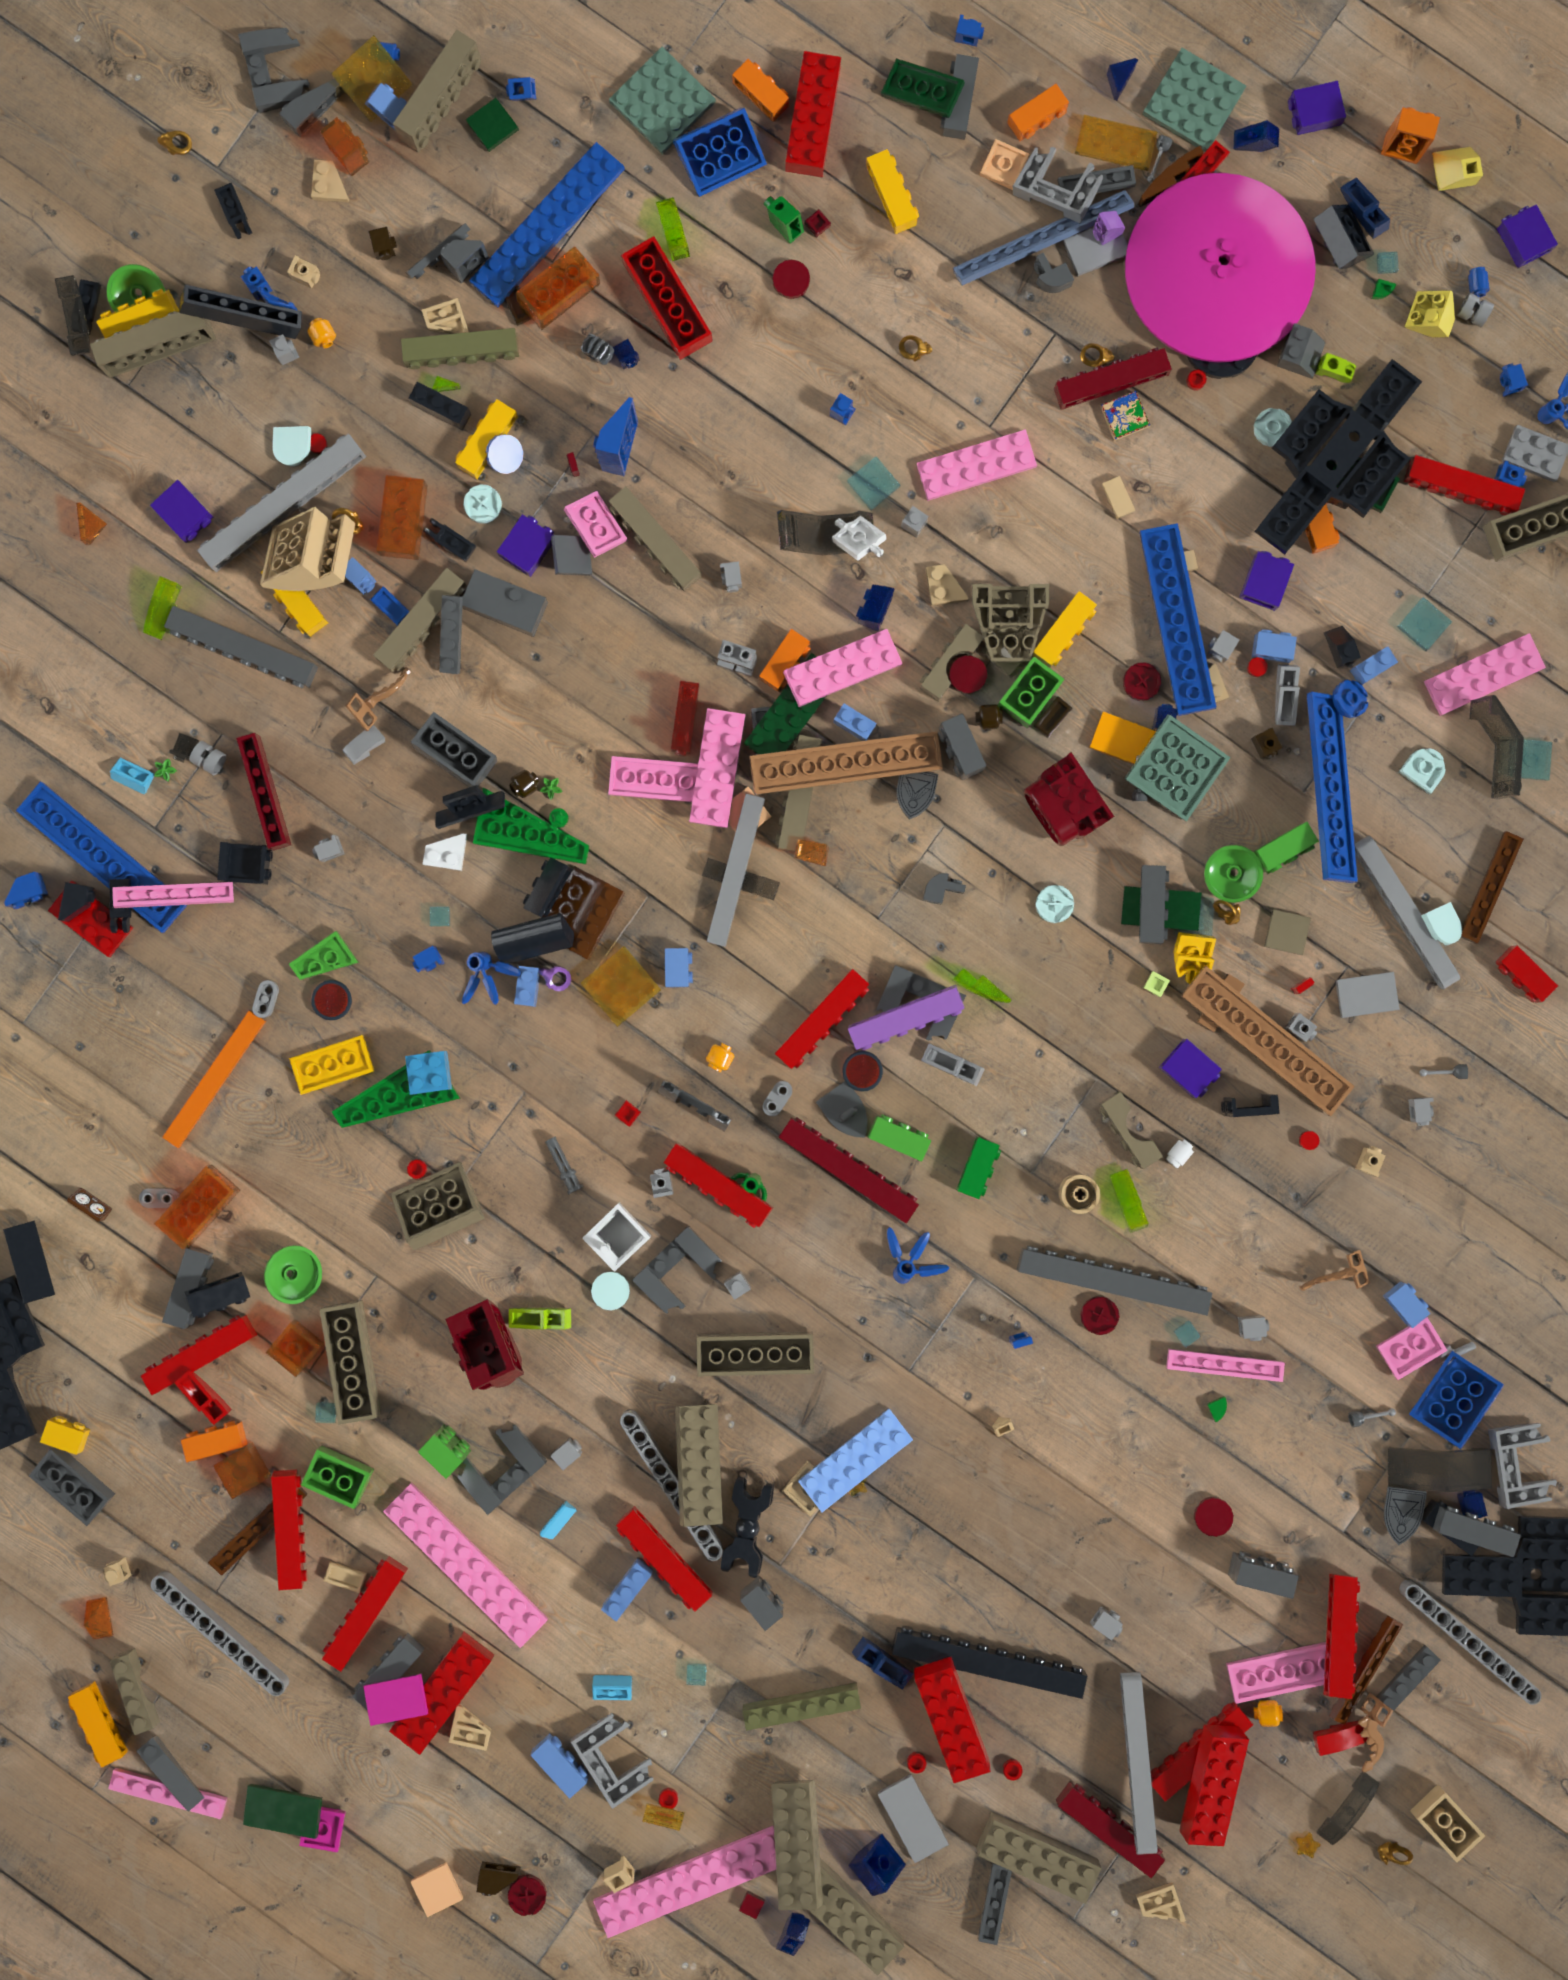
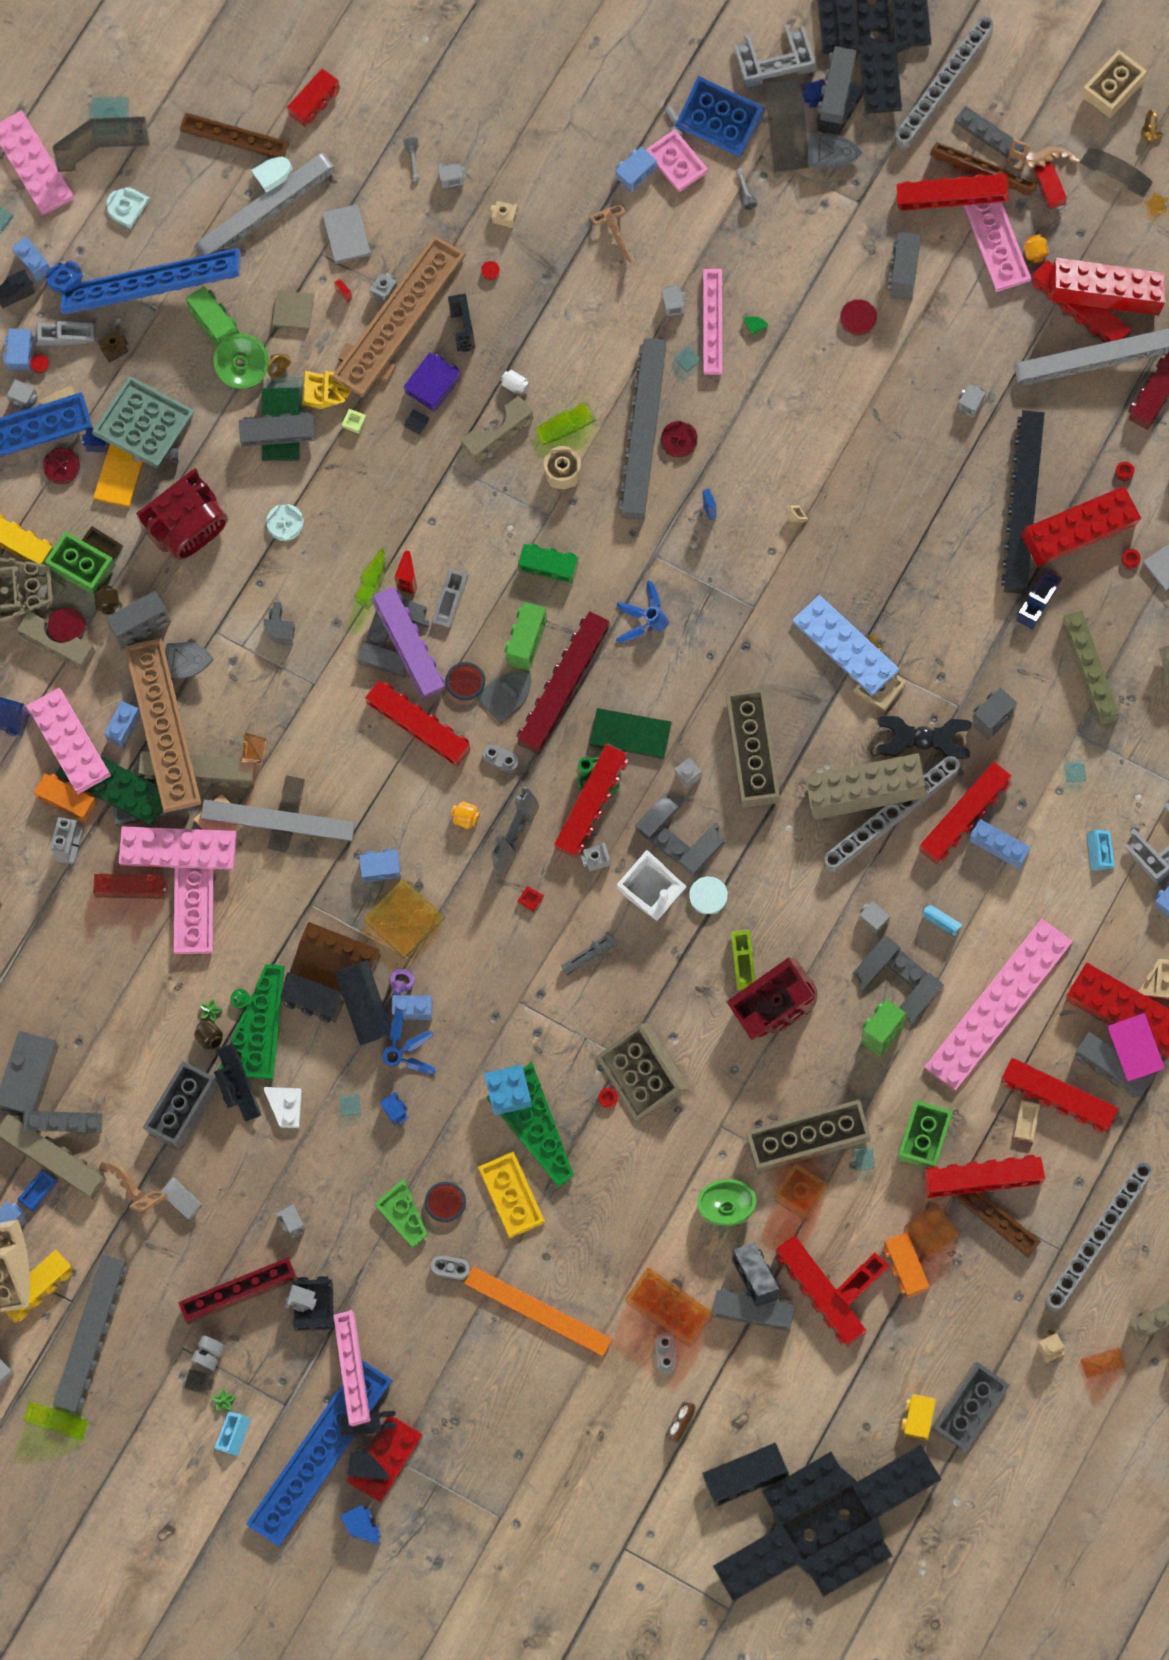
camera: 90 degrees left, 15 degrees down
(248, 850) = (300, 1299): none -> light grey brick
(788, 1231) = (630, 733): none -> dark green tile
(979, 1022) = (405, 574): none -> red tile
(1148, 1048) = (416, 422): none -> black tile

